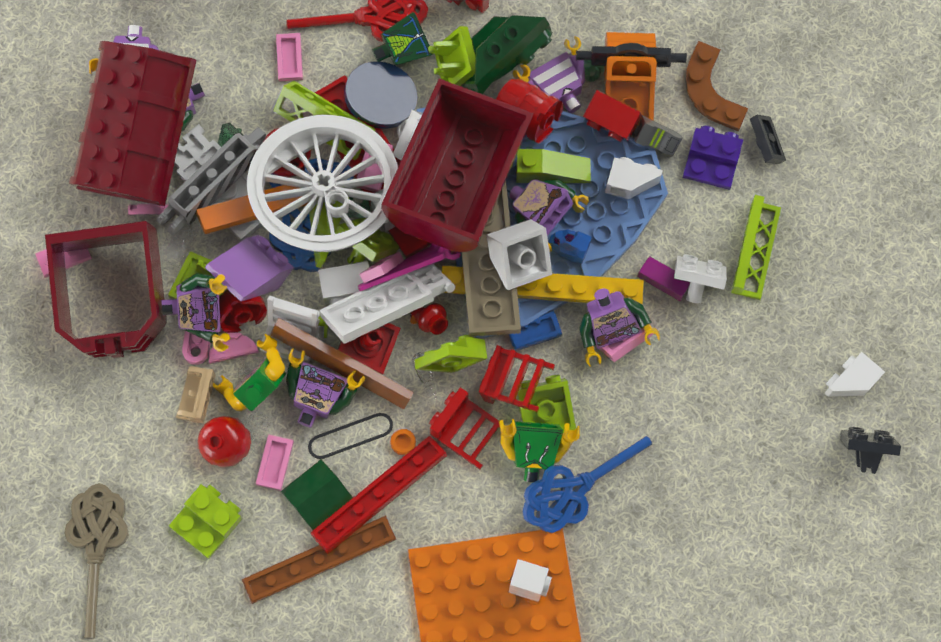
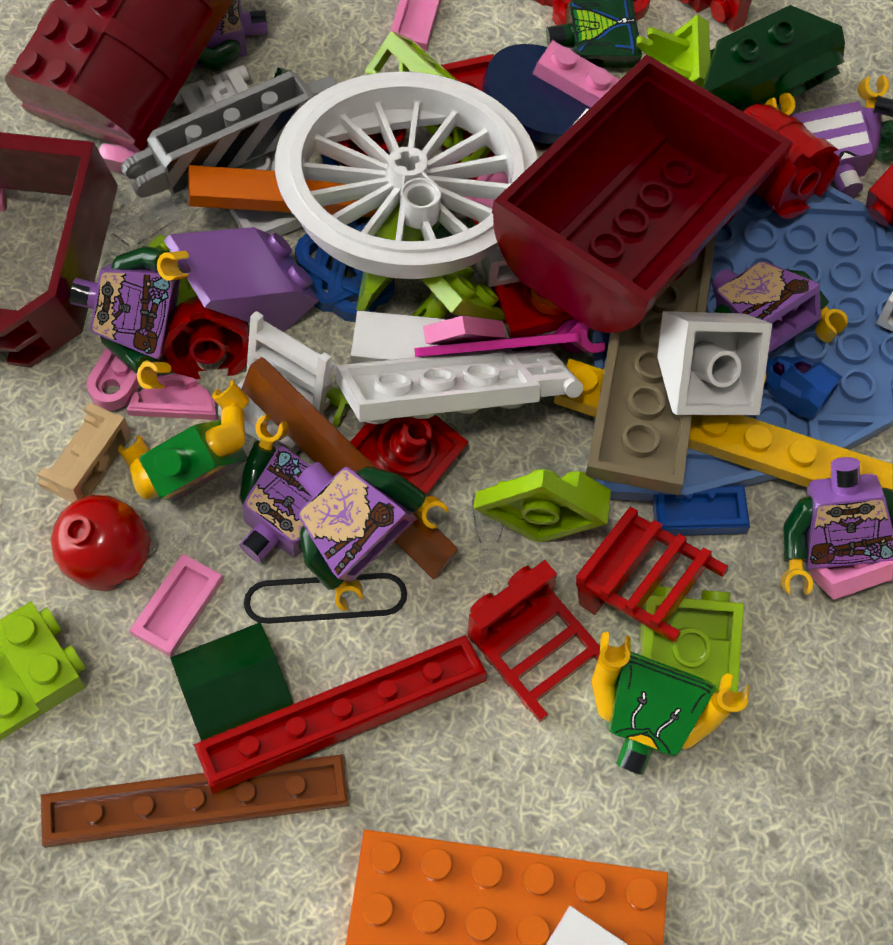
camera: 15 degrees right, 10 degrees down
(357, 396) = (355, 521): none -> torso
(398, 78) = (574, 74): none -> bright pink plate
(403, 441) = (414, 632): orange tile -> none
(430, 319) = (524, 440): red animal -> none
(551, 165) = (794, 247): lime slope -> none
(568, 499) = (687, 819): blue piece -> none

